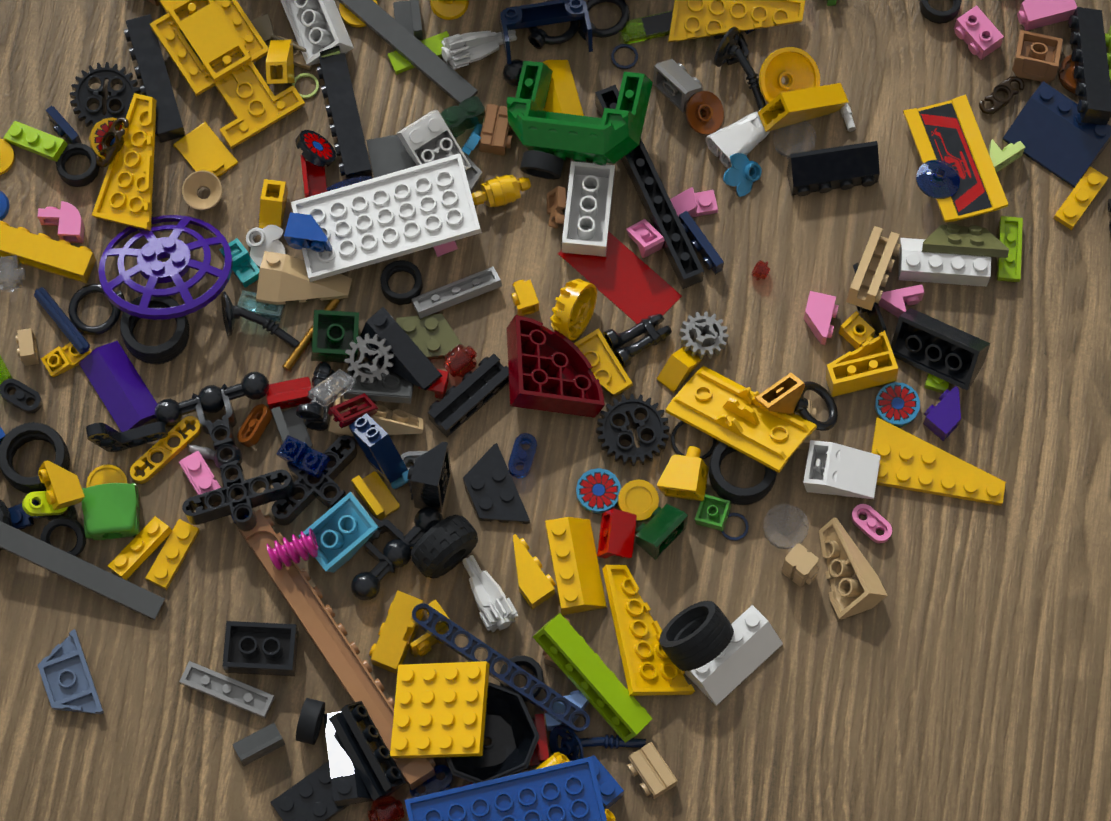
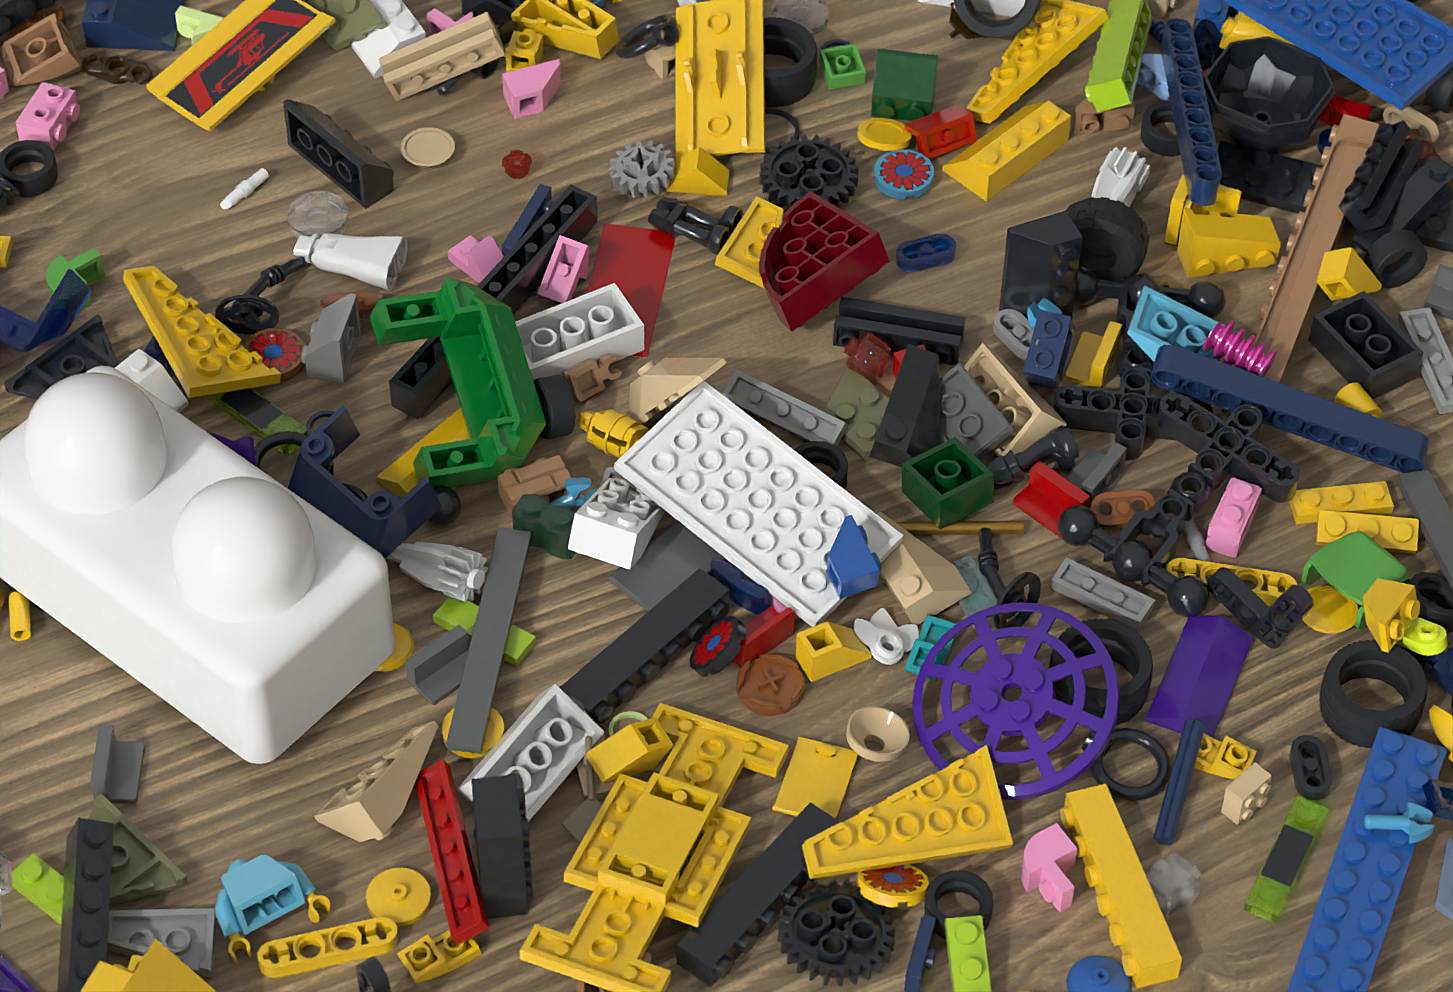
camera: 125 degrees left, 20 degrees down
(112, 133) = (887, 869): dark brown piece -> none
(207, 373) = (1102, 593): none -> light grey plate
(222, 611) = (1357, 398): none -> yellow brick
(238, 554) = (1290, 409): none -> dark blue beam
(281, 166) = (770, 684): none -> dark orange tile
(303, 456) = (1121, 419): clear blue slope -> none
(312, 673) = (1345, 275): none -> yellow slope
(332, 388) = (1019, 432): clear plate -> none
(350, 416) = (1028, 397): dark red tile -> none
(375, 367) = (950, 416): light grey gear -> none
(440, 710) = (1286, 123): yellow plate -> none
(494, 490) = (979, 262): black wing -> none
(502, 226) = (666, 382): none -> tan wedge
(525, 297) = (736, 343): yellow brick -> none
(532, 581) = (1058, 175): yellow slope -> none
(574, 308) = (716, 275): yellow gear -> none
(685, 476) = (824, 100): yellow torso -> none
(697, 56) = (279, 350): none -> tile
(742, 173) = (401, 227): dark azure plate -> none
(783, 395) = (670, 38): pearl gold slope -> none
(792, 64) = (247, 242): yellow dish -> none
(802, 105) = (281, 204): yellow slope -> none
(809, 227) = (427, 147): none -> tan piece
(937, 186) = (283, 50): clear blue dish -> none

